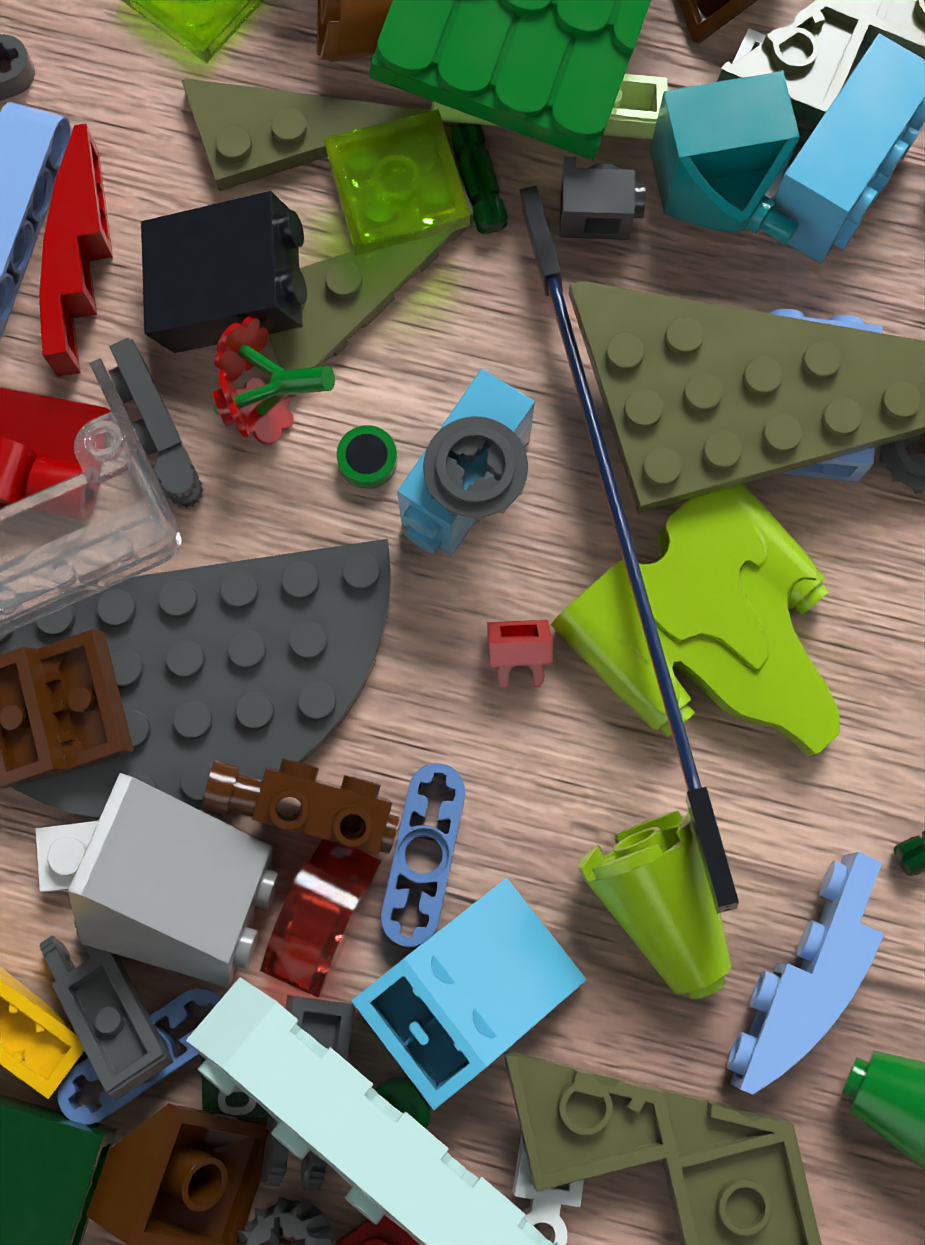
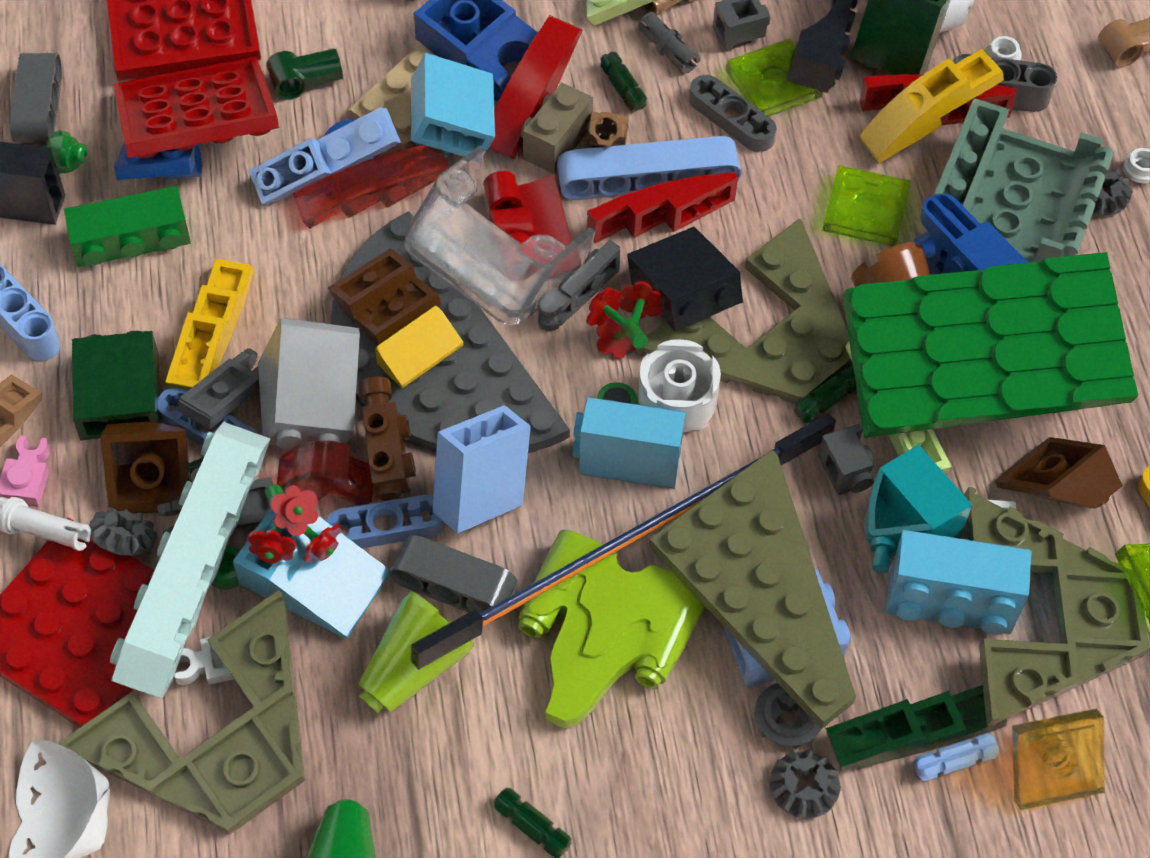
camera: 65 degrees right, 20 degrees down
(169, 694) = (418, 347): none -> yellow slope
(379, 334) = (681, 379): none -> white brick
(397, 182) = (790, 342): clear neon green plate -> none
(428, 1001) = (294, 512): none -> red plant
(434, 688) = (480, 468): none -> light blue brick
(464, 441) = (634, 418): dark grey gear -> none
(518, 645) = (536, 520): red tile -> none
(556, 795) = (451, 575): none -> dark grey beam
(804, 1003) = (382, 763): light blue slope -> none

